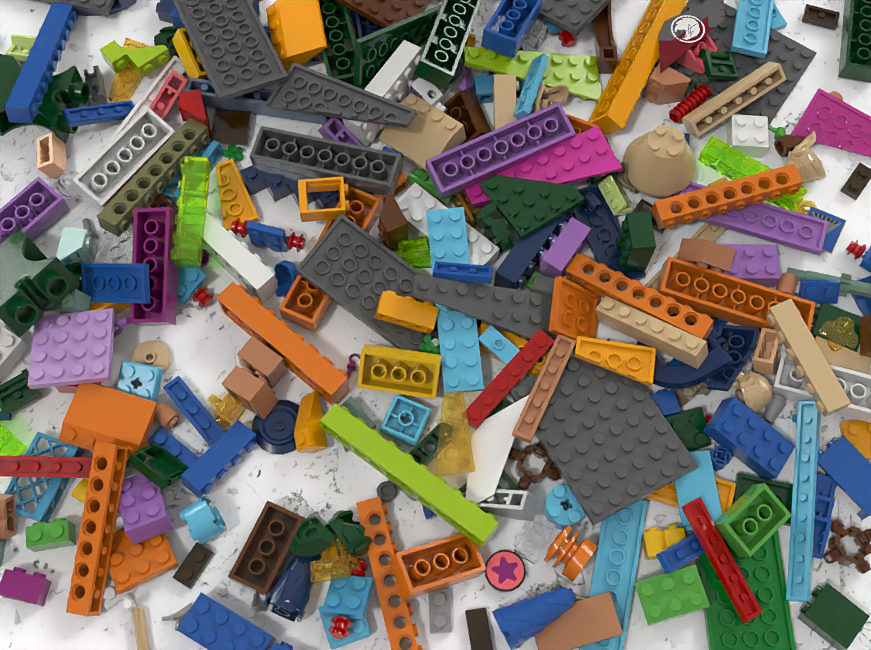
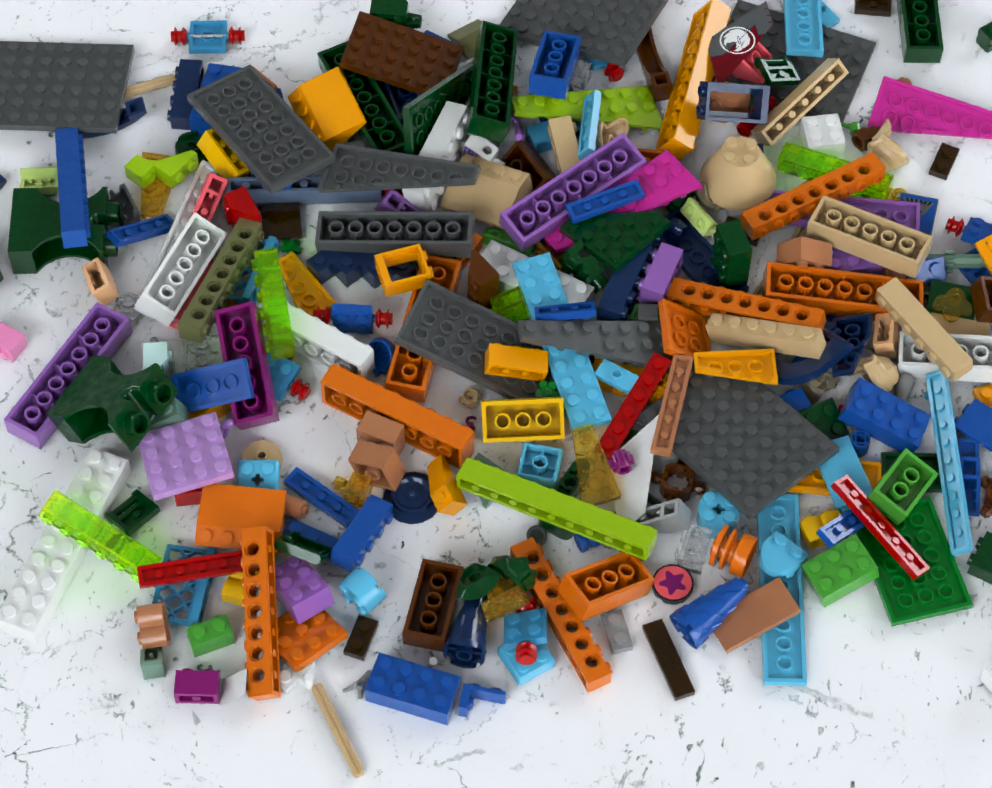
camera: 10 degrees left, 10 degrees down
(56, 596) = (233, 687): none -> white sticker
(359, 330) = (470, 393): none -> tan plate
(482, 436) = (621, 461): none -> magenta gear
(526, 167) = (604, 201): none -> blue plate
(616, 567) = (781, 556): none -> medium azure slope
(690, 106) = (760, 107): none -> piece
(773, 250) = (869, 236): none -> tan brick

